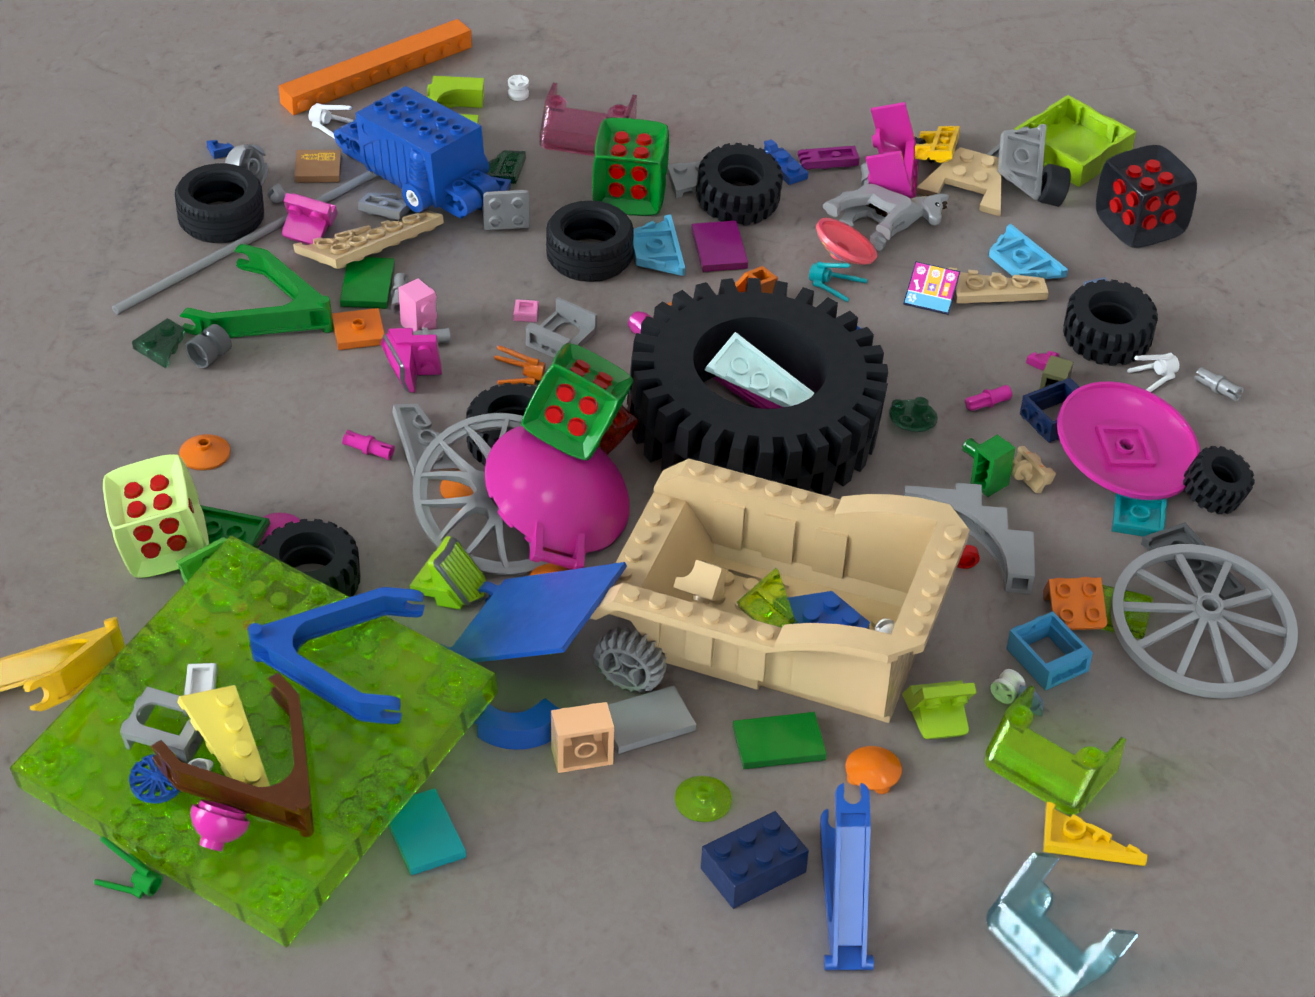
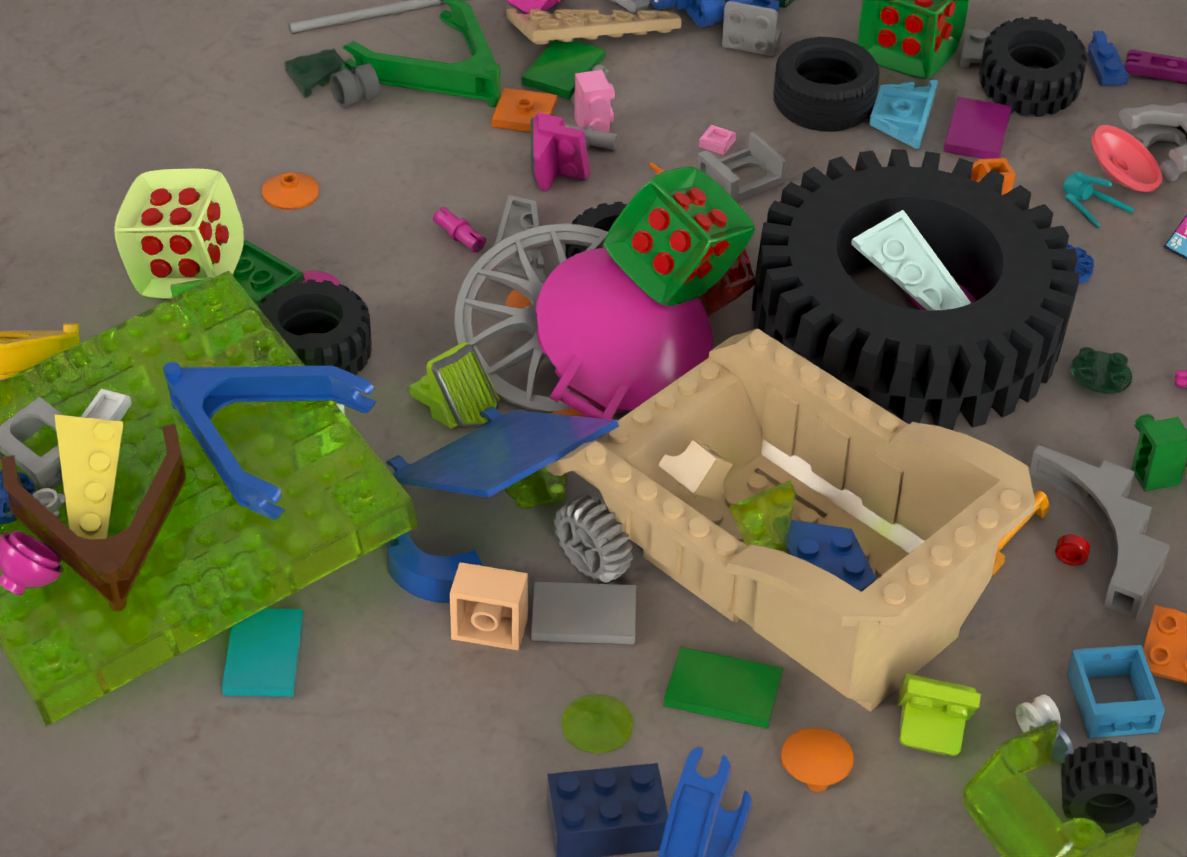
camera: 25 degrees right, 0 degrees up
(1087, 718) = (1109, 785): none -> black tyre

